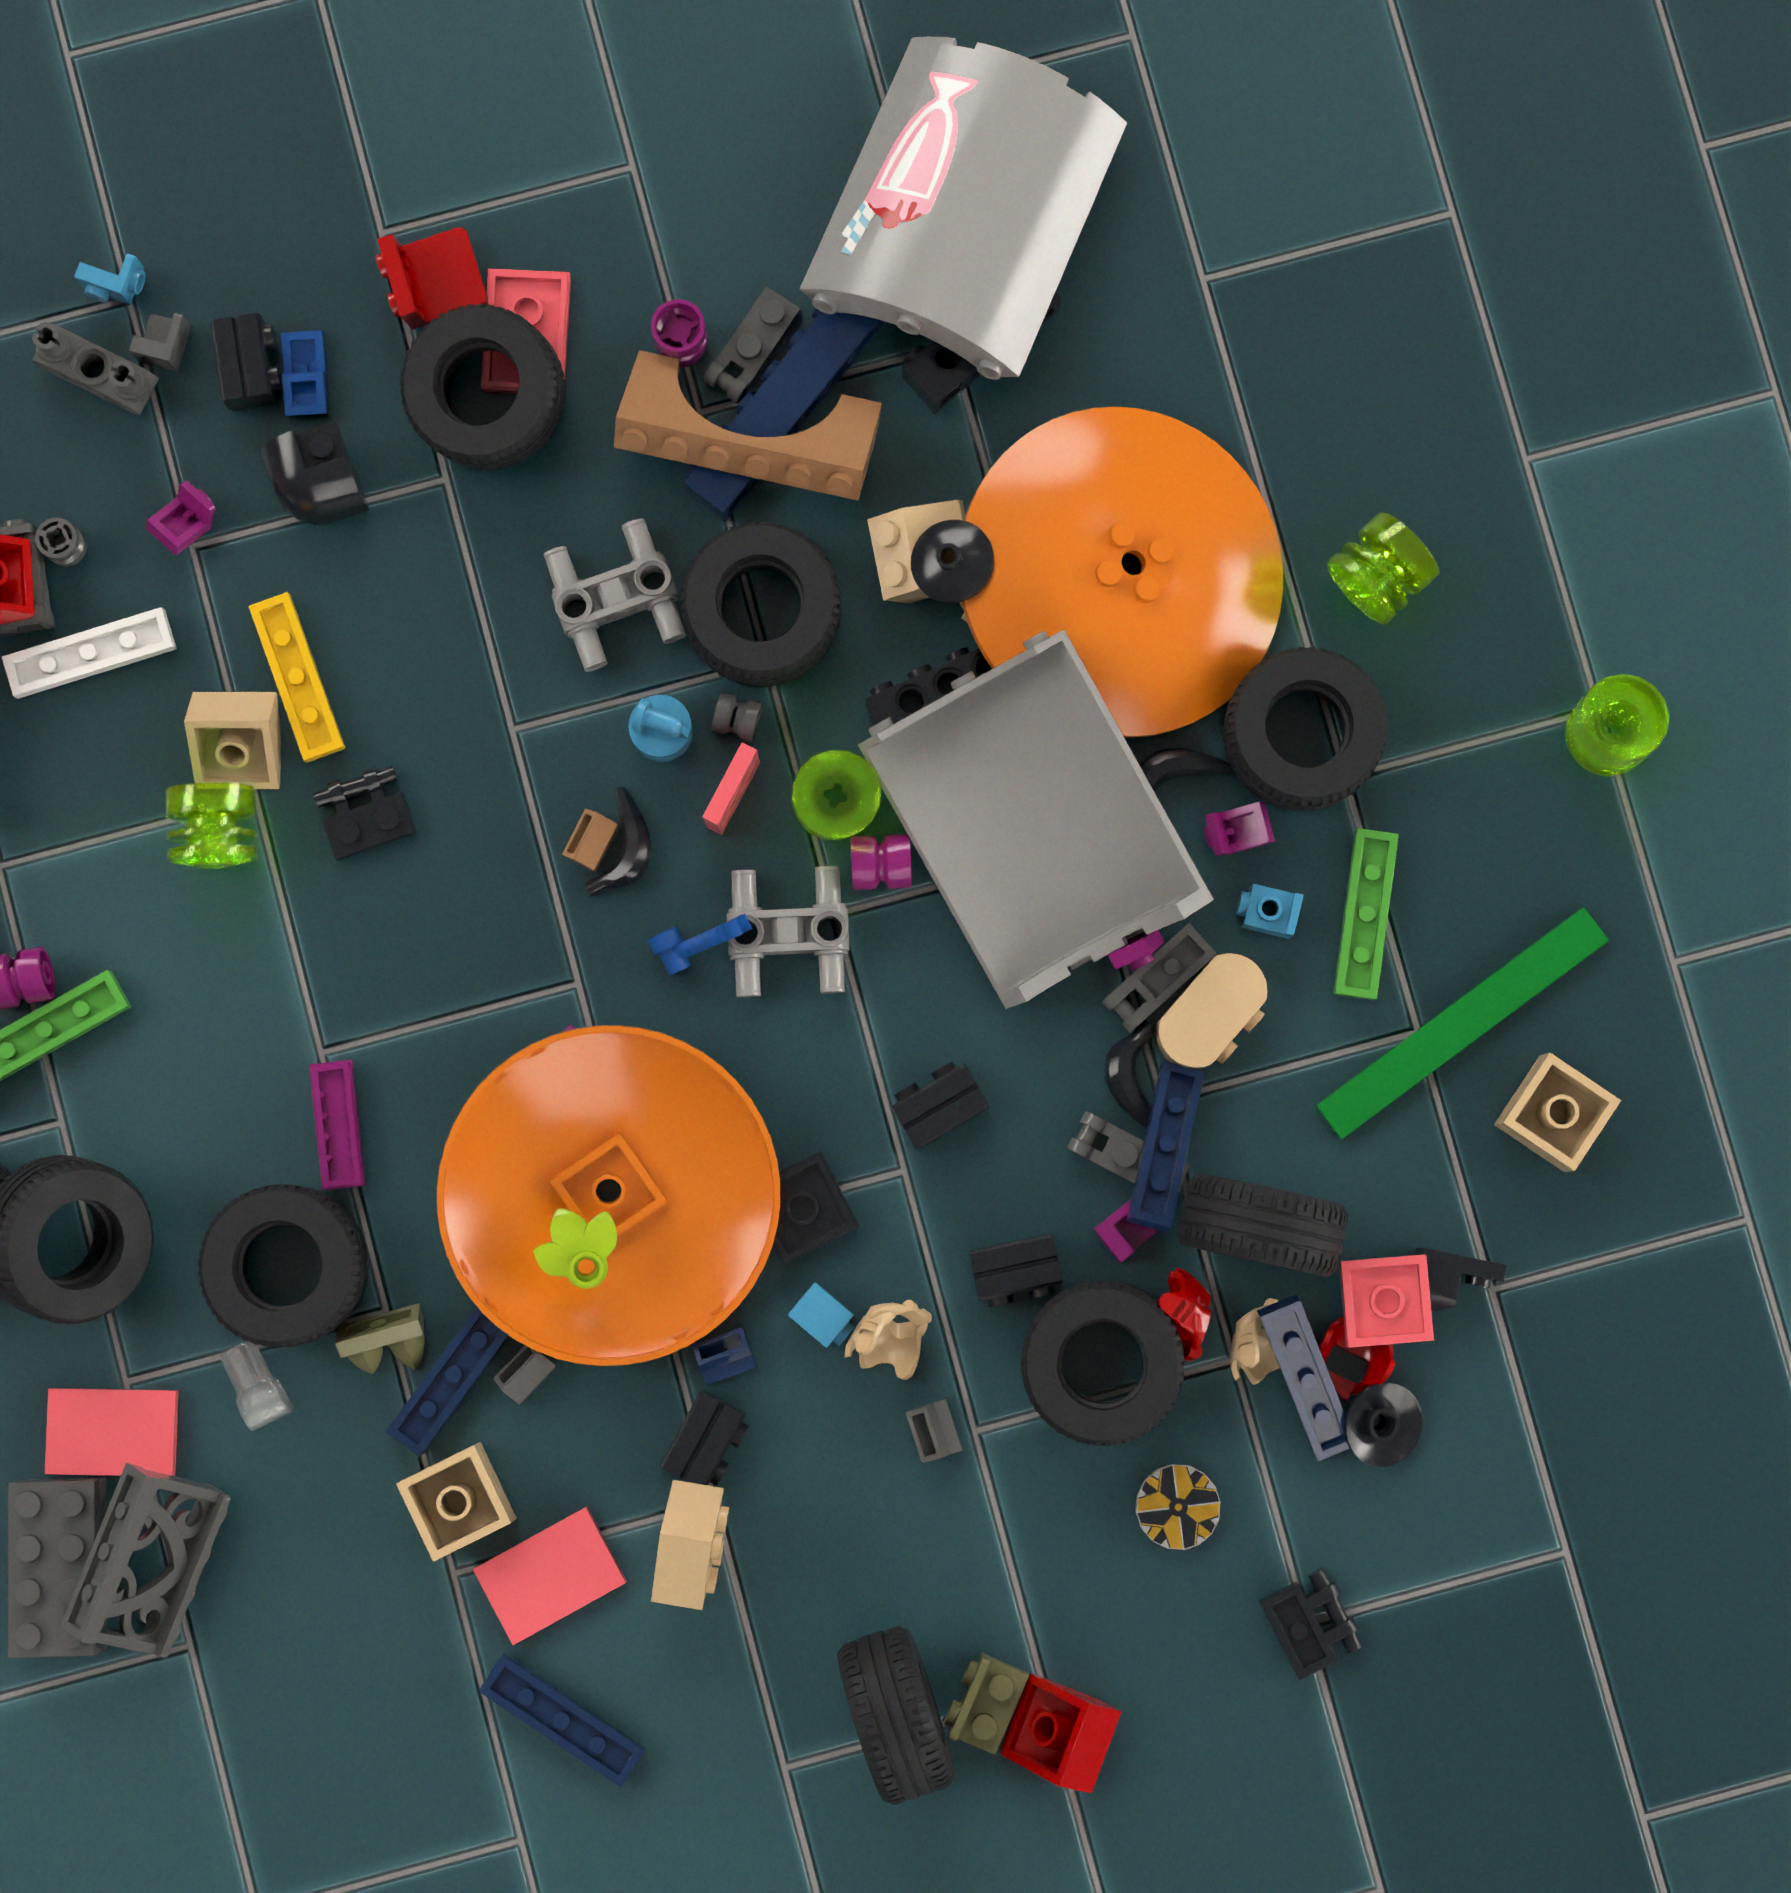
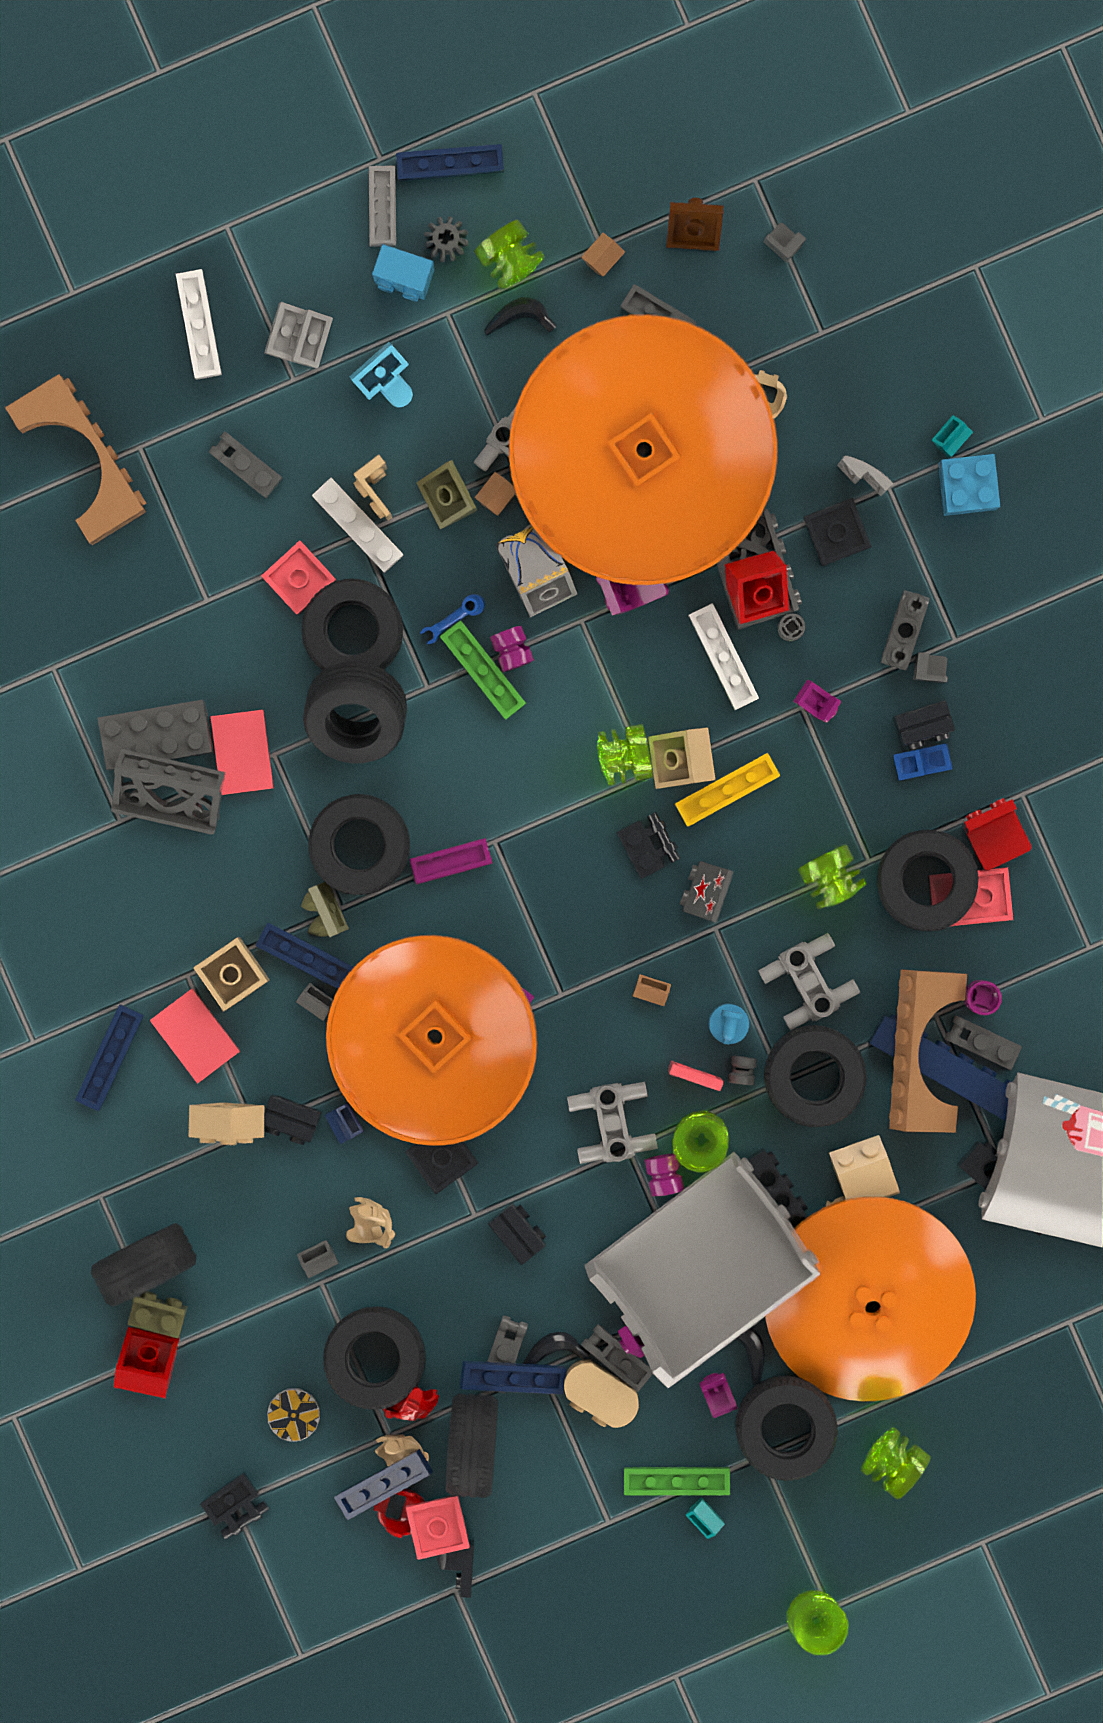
camera: 85 degrees right, 5 degrees up
(104, 285) = (959, 625): dark azure bracket -> none
(260, 1395) = (279, 839): clear piece -> none
(314, 475) = (856, 780): black brick -> none
(444, 727) = (706, 891): none -> dark grey slope
(454, 533) = (832, 877): none -> clear neon green wheel
(574, 1241) = (399, 1024): lime plate -> none
(635, 848) = (650, 1018): black piece -> none
(675, 950) = (589, 1054): blue brick -> none
(823, 1316) = (377, 1180): dark azure brick -> none
(963, 576) = (857, 1208): black dish -> none
(1016, 1268) = (424, 1294): black brick -> none
(1120, 1235) = (455, 1355): magenta panel -> none
(1282, 923) = (669, 1432): dark azure brick -> none
(1397, 1429) = (358, 1542): black dish -> none
(1431, 878) = (705, 1518): none -> teal piece
(1461, 1023) = (617, 1549): green tile -> none
(1557, 1112) = (569, 1616): tan brick -> none

